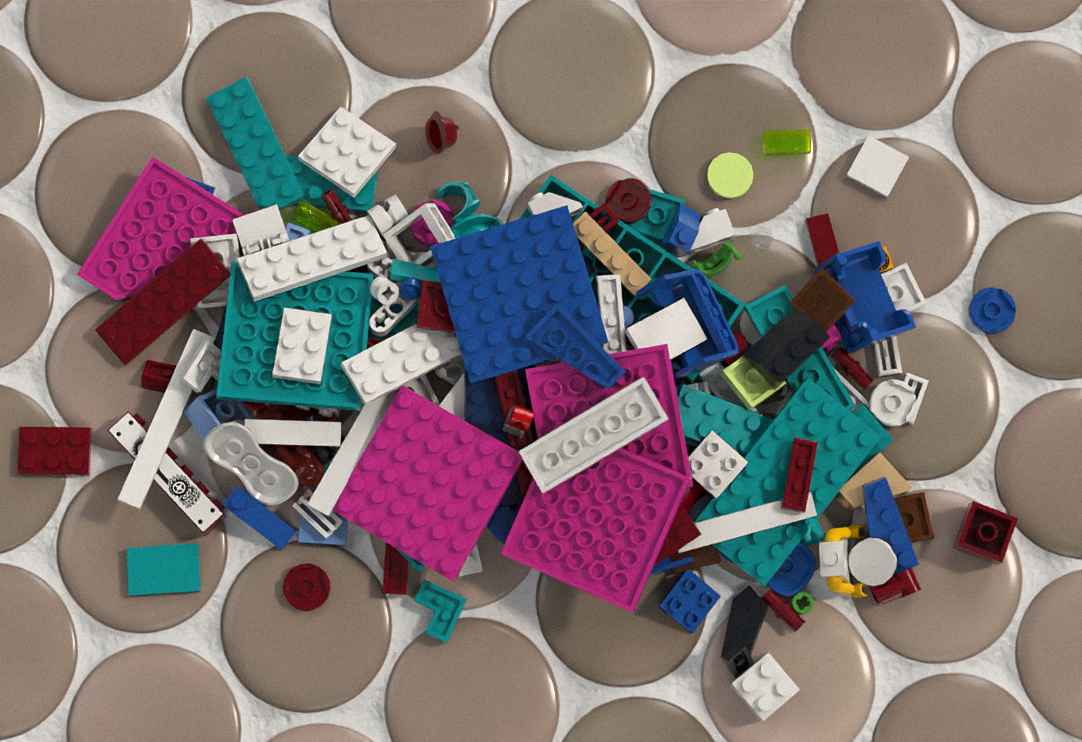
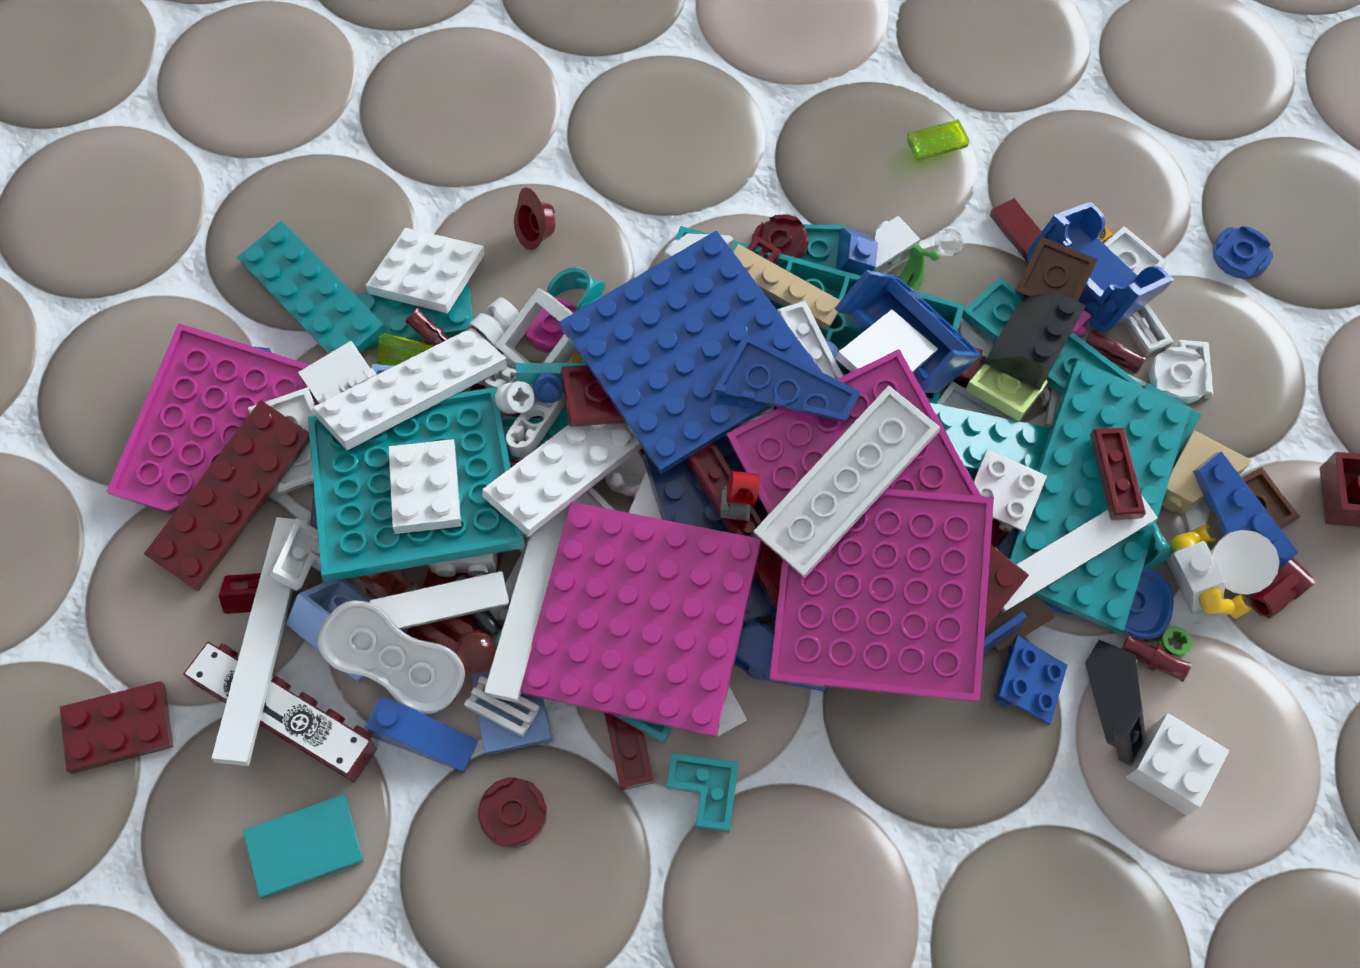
camera: 15 degrees left, 15 degrees down
(730, 175) = (886, 189): yellowish green tile -> none
(877, 166) = (1047, 141): white tile -> none

